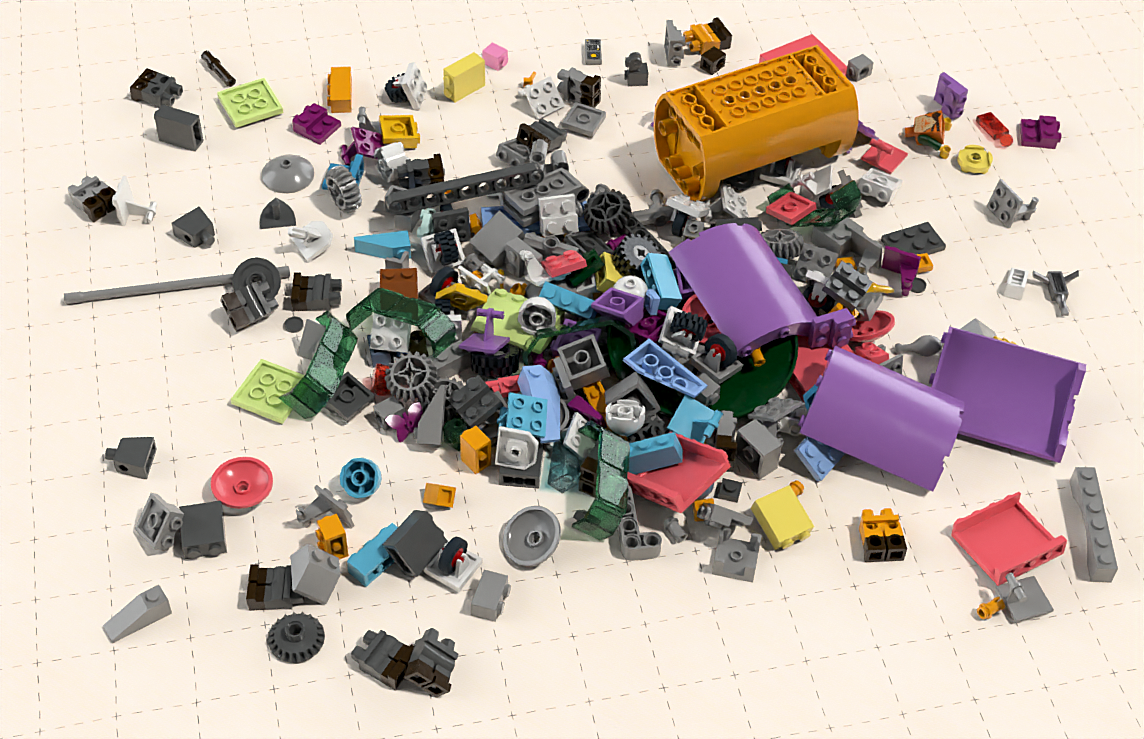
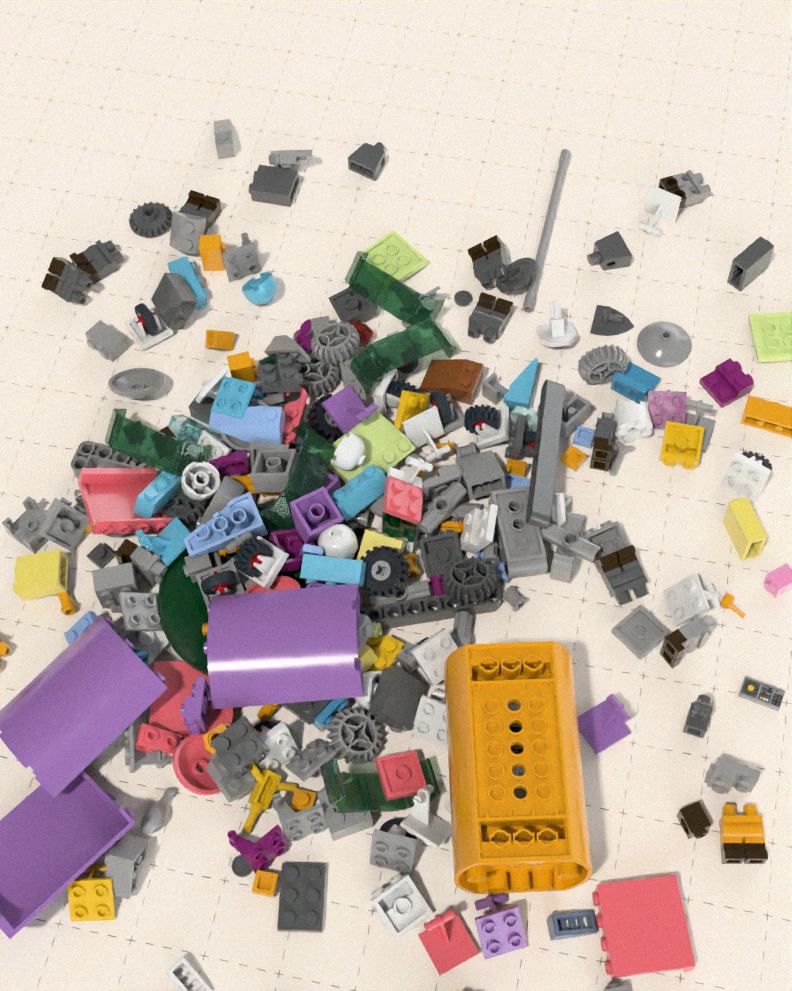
camera: 120 degrees right, 10 degrees up
(239, 475) = (300, 213): coral dish -> none

